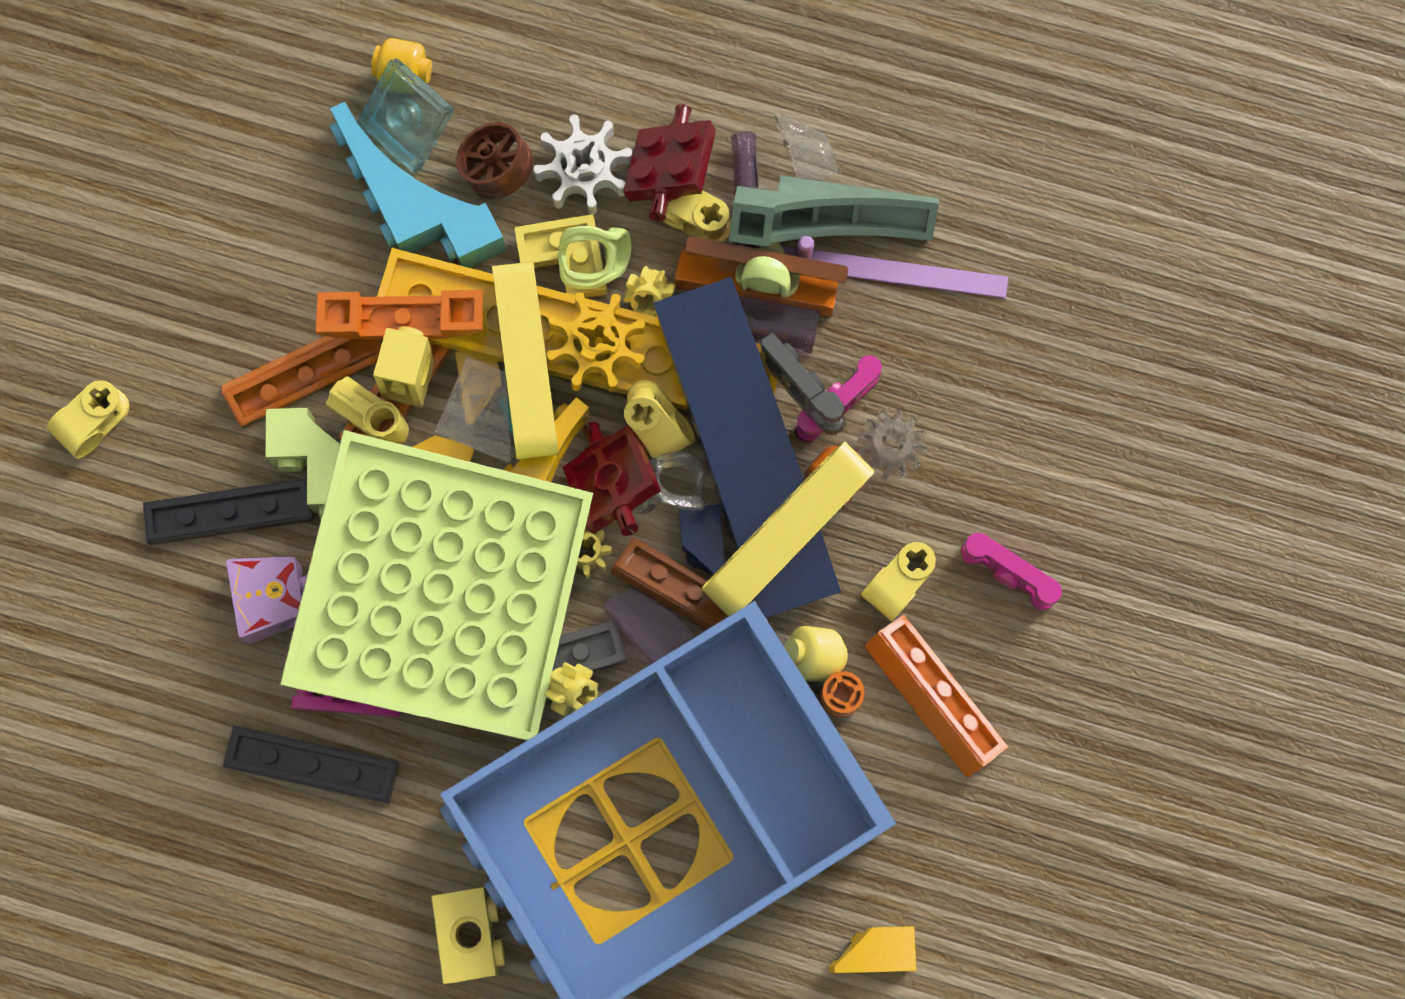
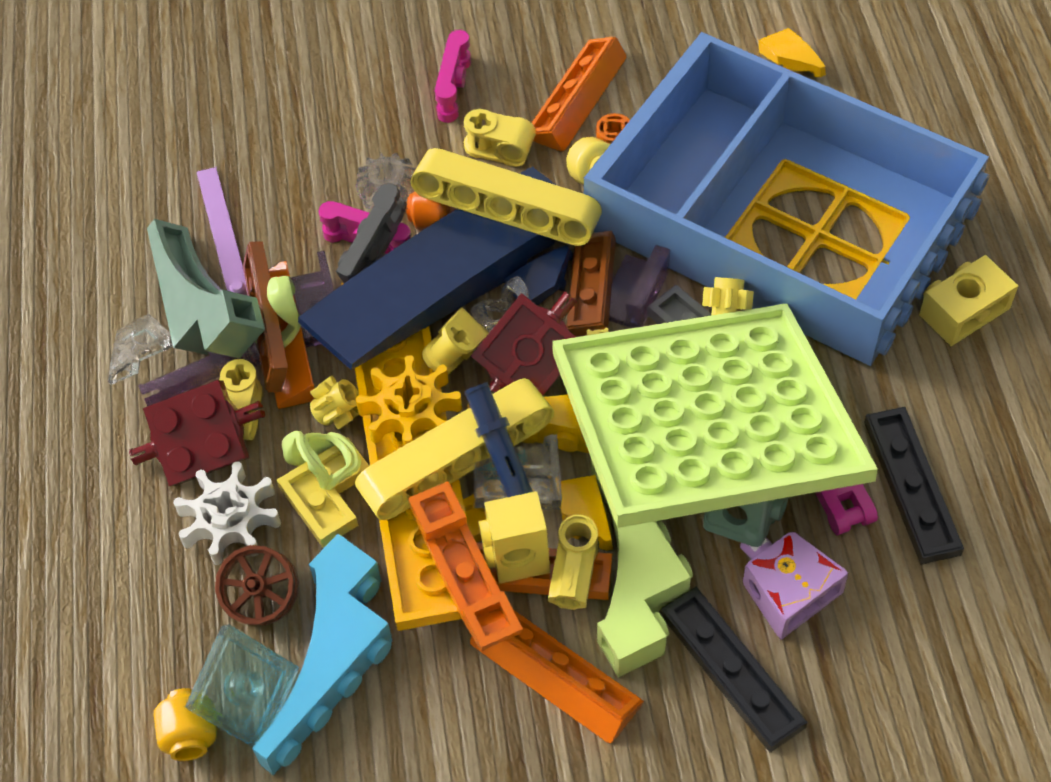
camera: 110 degrees left, 20 degrees down
(502, 383) = (497, 440): none -> dark blue pin

